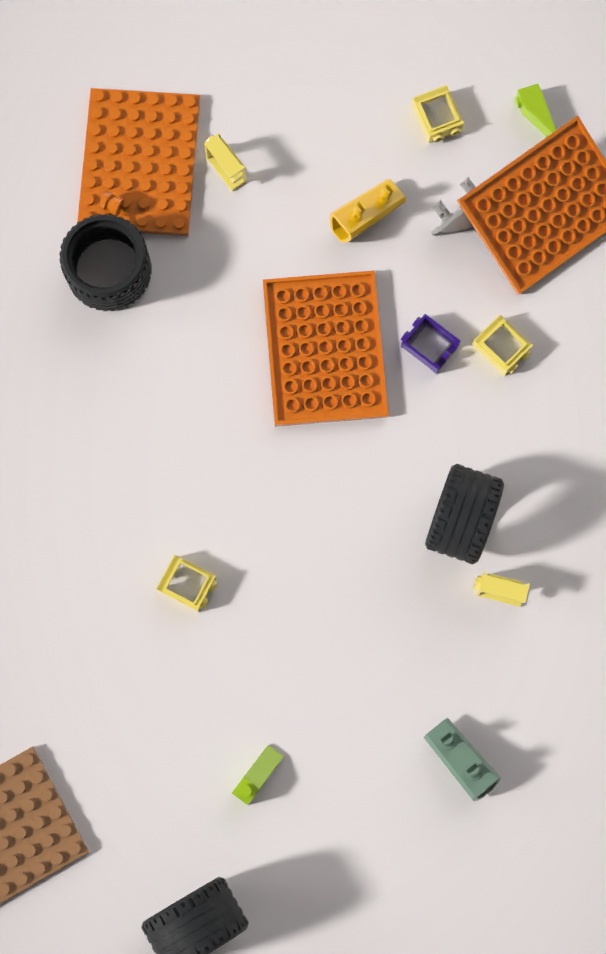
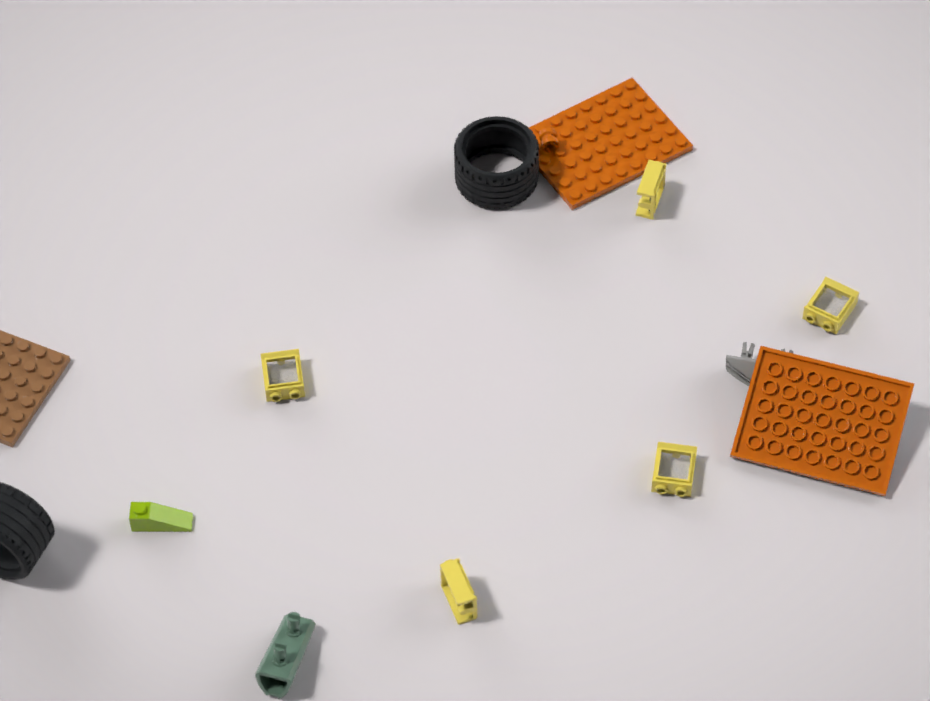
camera: 55 degrees right, 25 degrees down
(325, 348) = (559, 351): orange plate -> none
(365, 210) = (700, 304): yellow piece -> none
(430, 343) = (628, 418): window -> none
(465, 514) = (495, 511): black tyre -> none
(534, 108) = (905, 362): lime slope -> none

